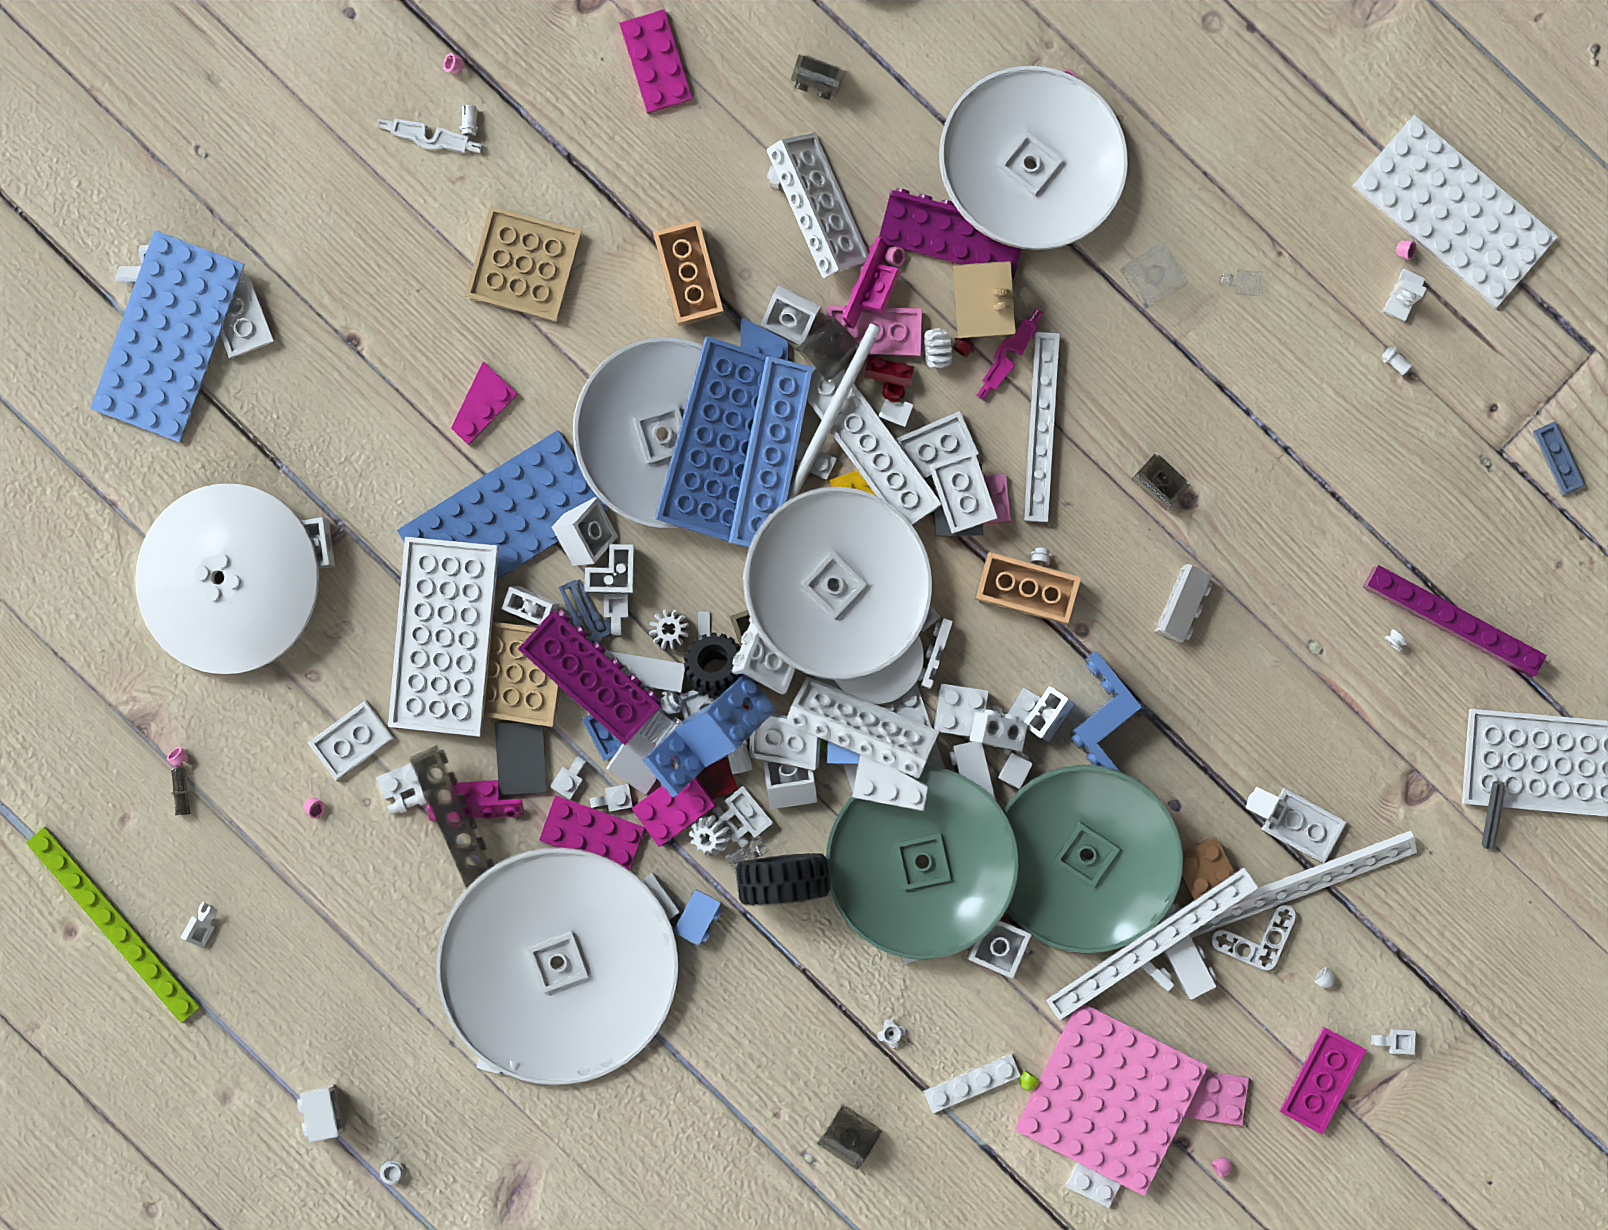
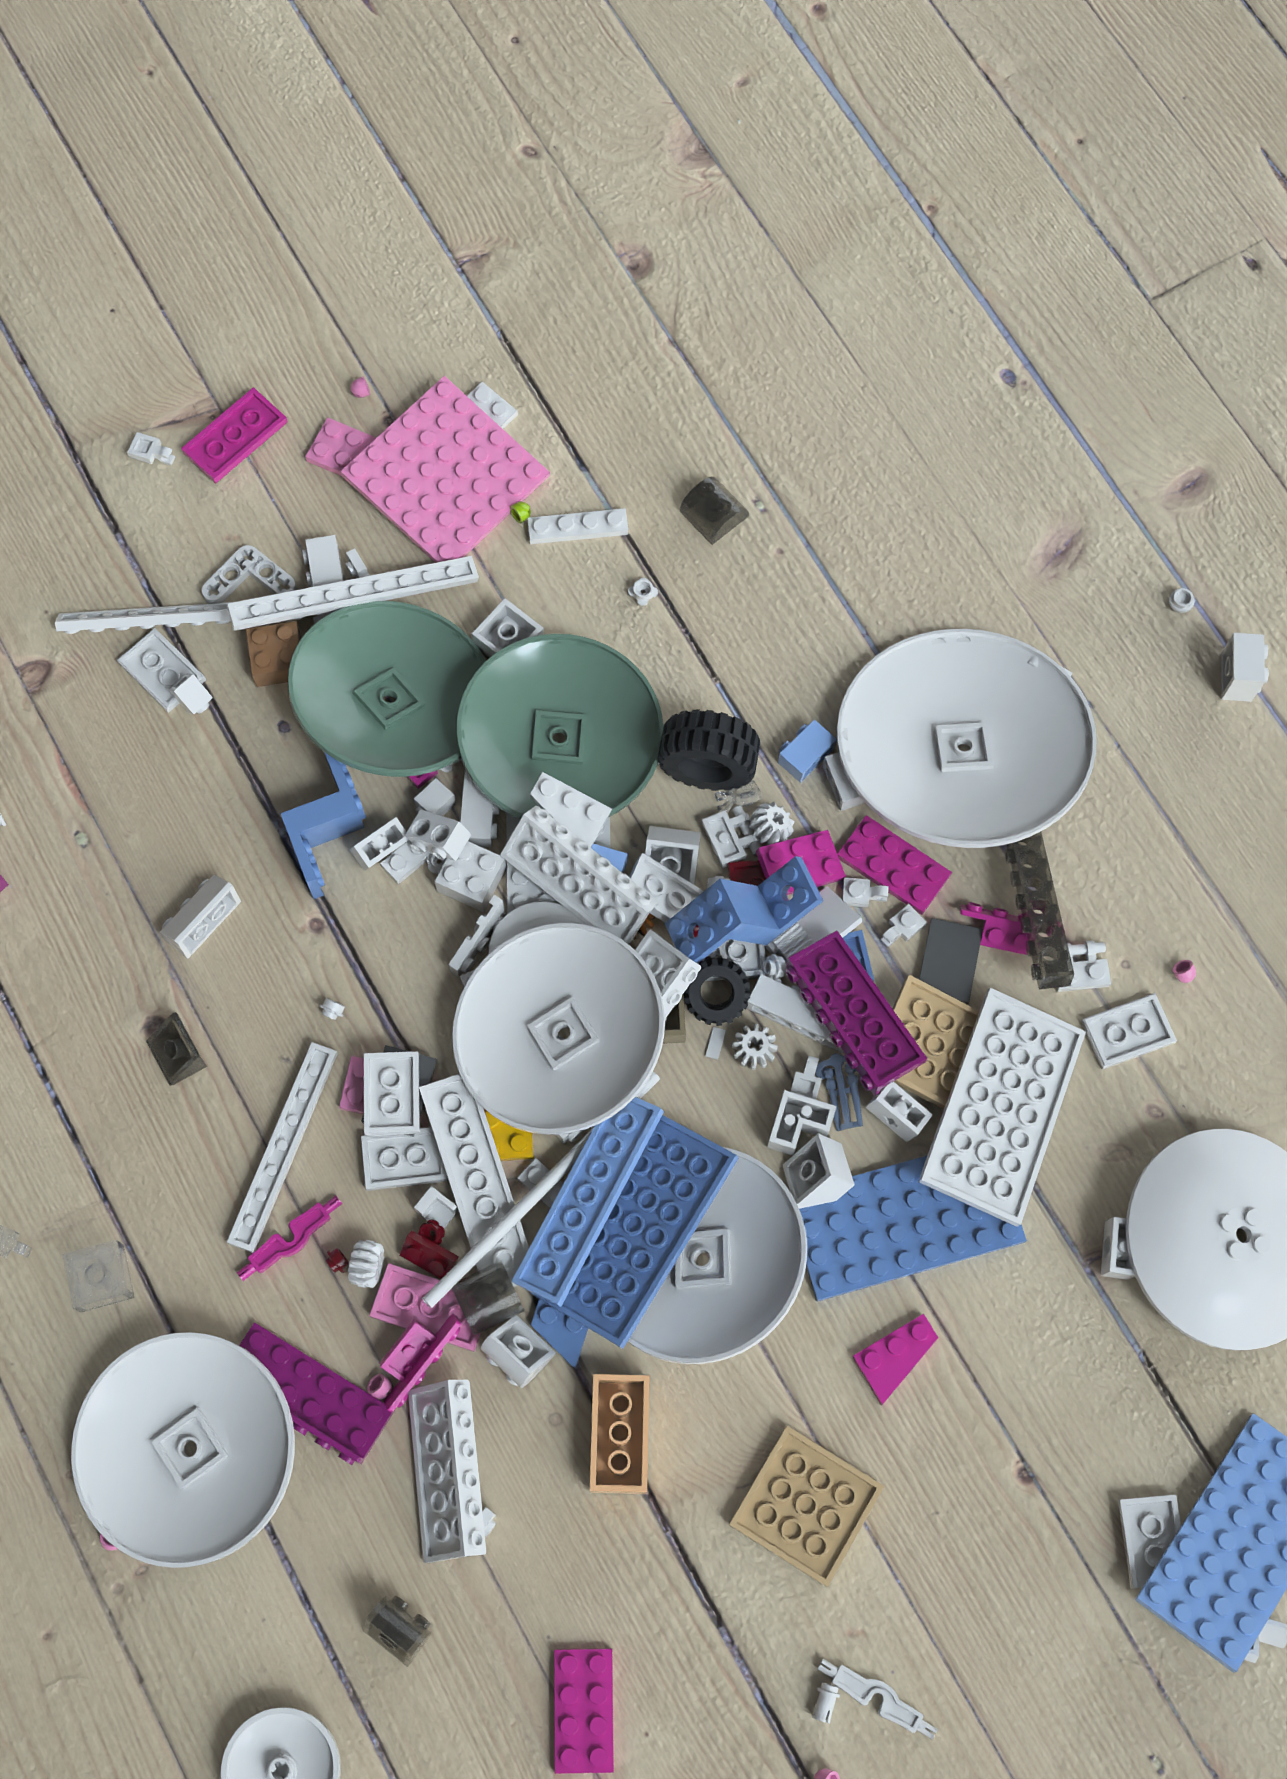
camera: 160 degrees left, 15 degrees down
(984, 299) = (295, 1300): tan piece -> none
(1027, 588) = (357, 977): light nougat brick -> none
(1325, 978) = (196, 524): white hinge -> none

